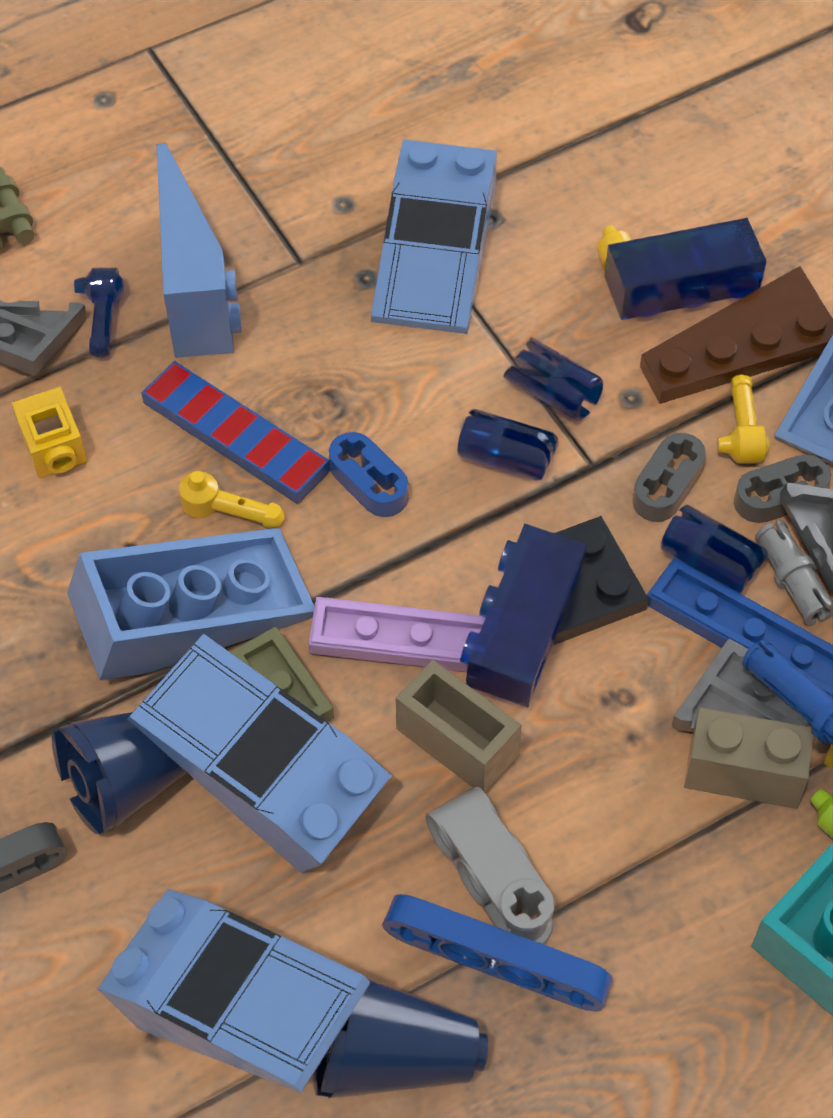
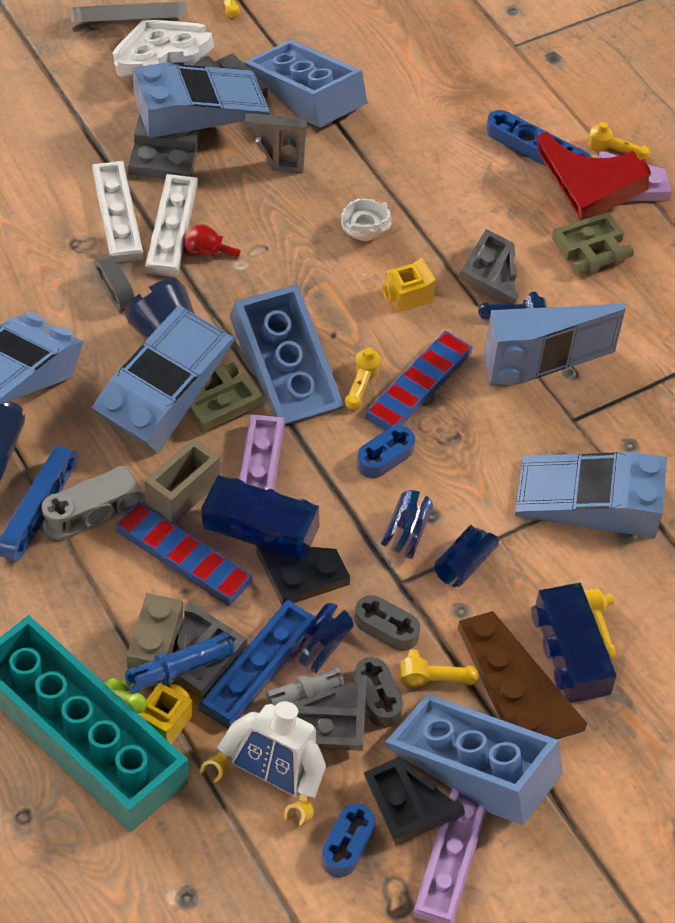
camera: 85 degrees right, 5 degrees down
(570, 738) = (184, 553): none -> tile

